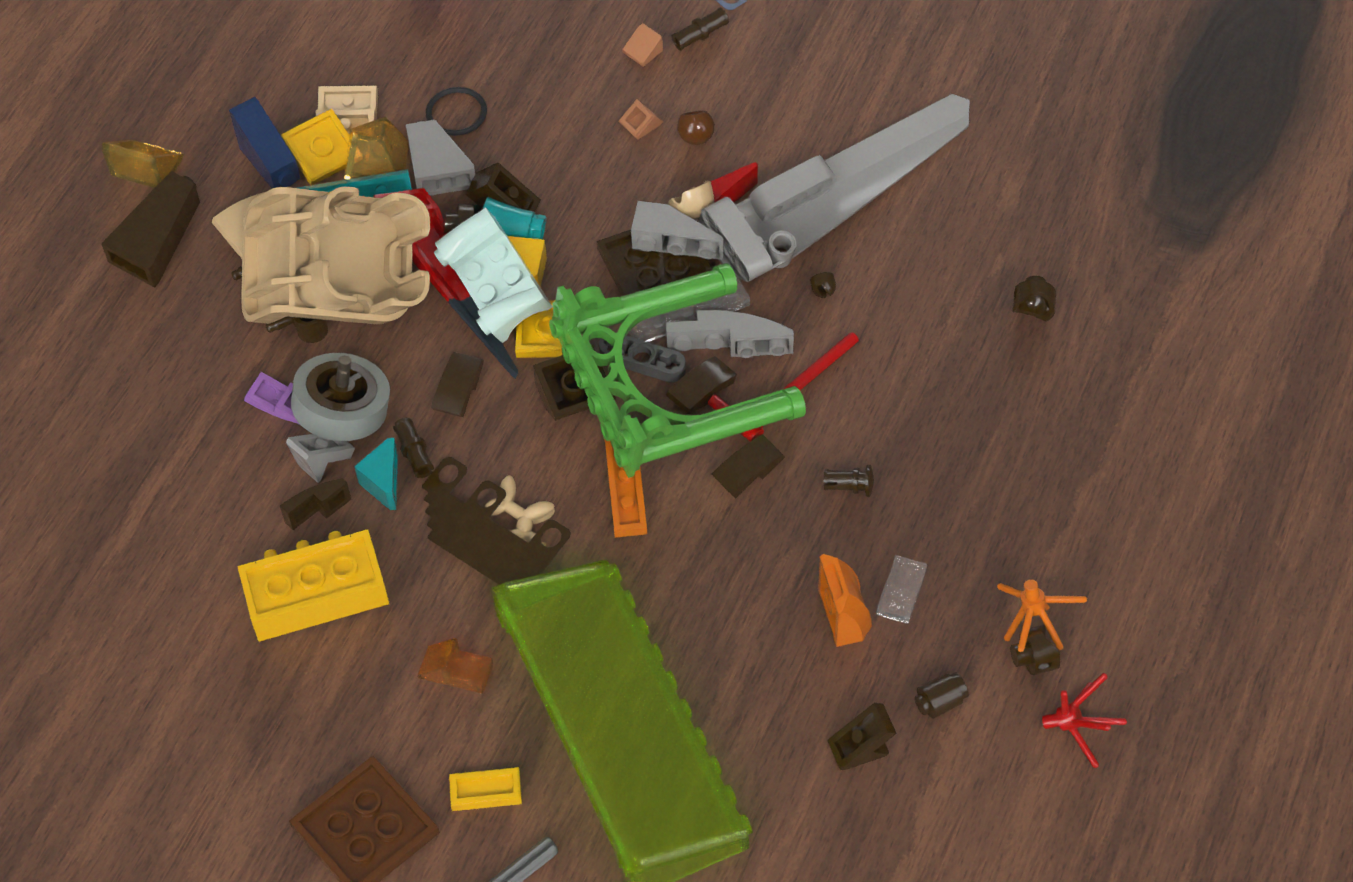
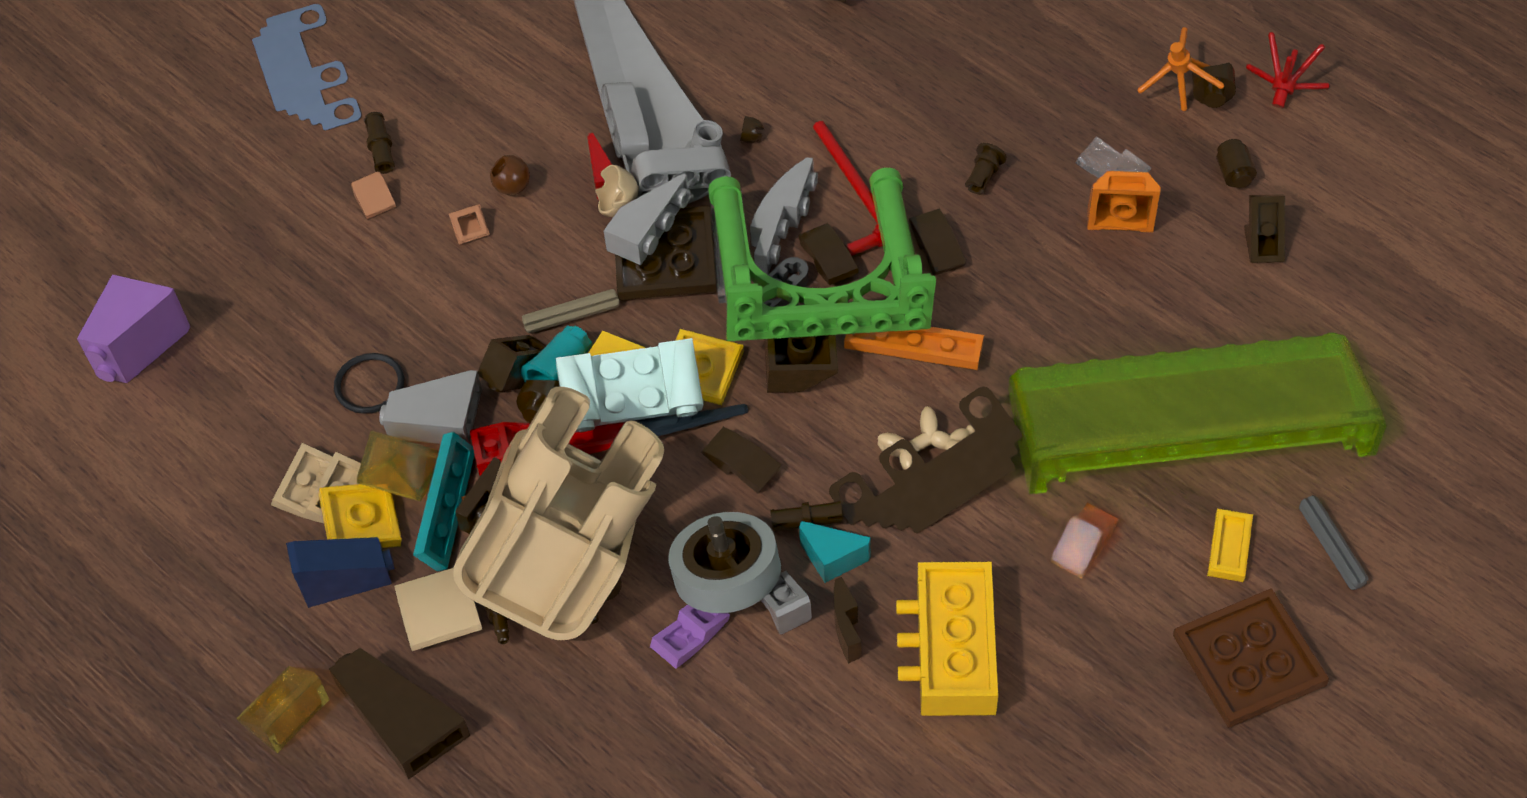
camera: 70 degrees left, 0 degrees up
(571, 217) = (570, 311): none -> dark tan axle

